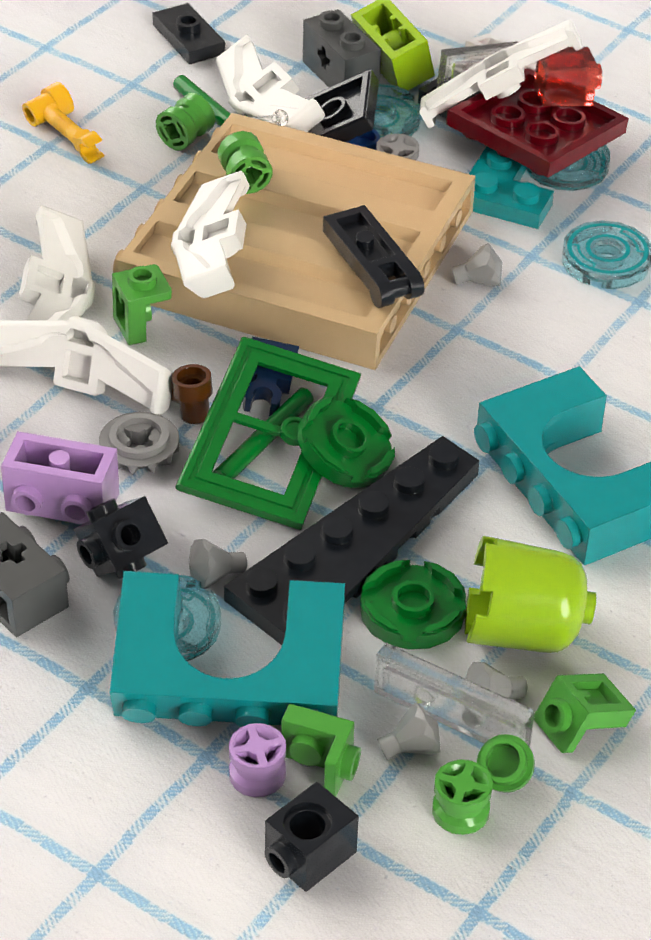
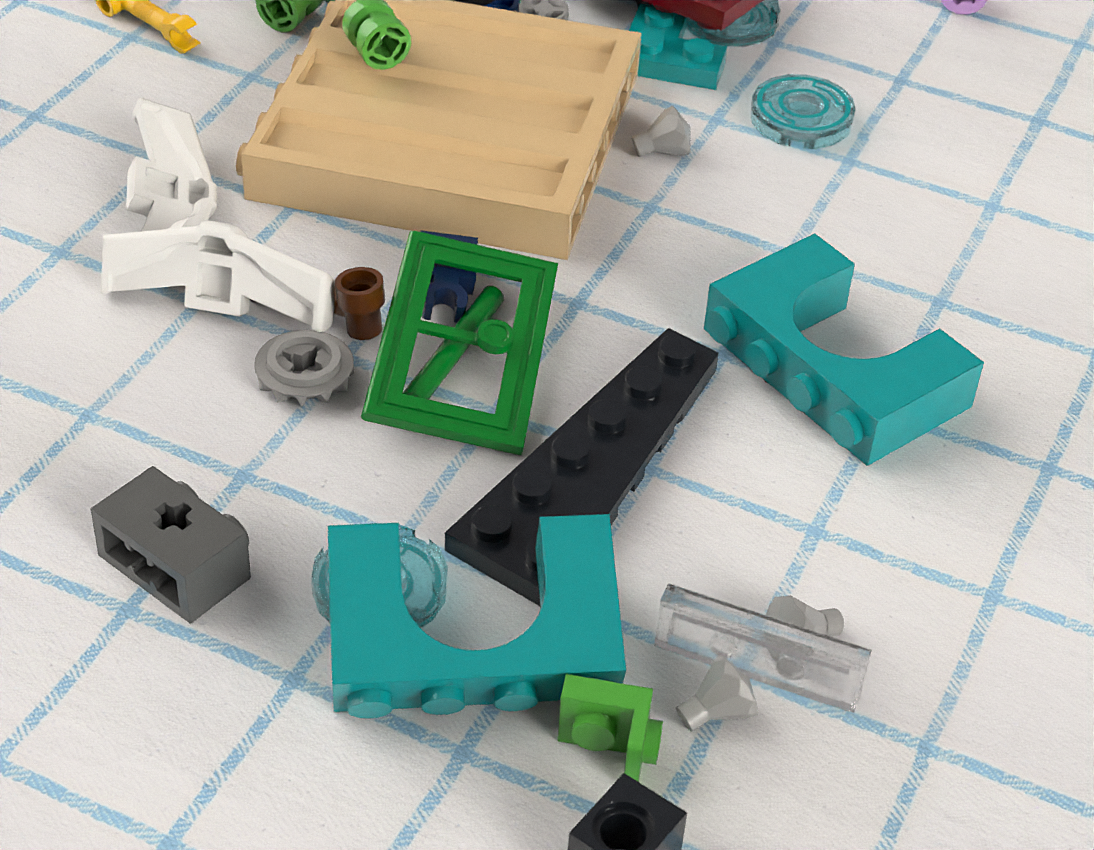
camera: 10 degrees left, 0 degrees up
(58, 477) = (218, 419): lavender brick -> none
(119, 536) = (305, 483): black brick -> none
(132, 298) = (267, 196): bright green bracket -> none
(211, 235) = (353, 117): white plate -> none
(211, 563) = (423, 505): light grey rock -> none
(261, 745) = (547, 739): lavender wheel -> none
(345, 442) = (557, 344): green tile -> none
(373, 255) = (549, 126): black plate -> none
(413, 604) = (678, 533): green tile -> none
(452, 784) = (817, 762): bright green wheel -> none
(508, 762) = (843, 720): bright green plate -> none
(527, 597) = (821, 510): lime cylinder -> none
(578, 705) = (914, 638): bright green bracket -> none

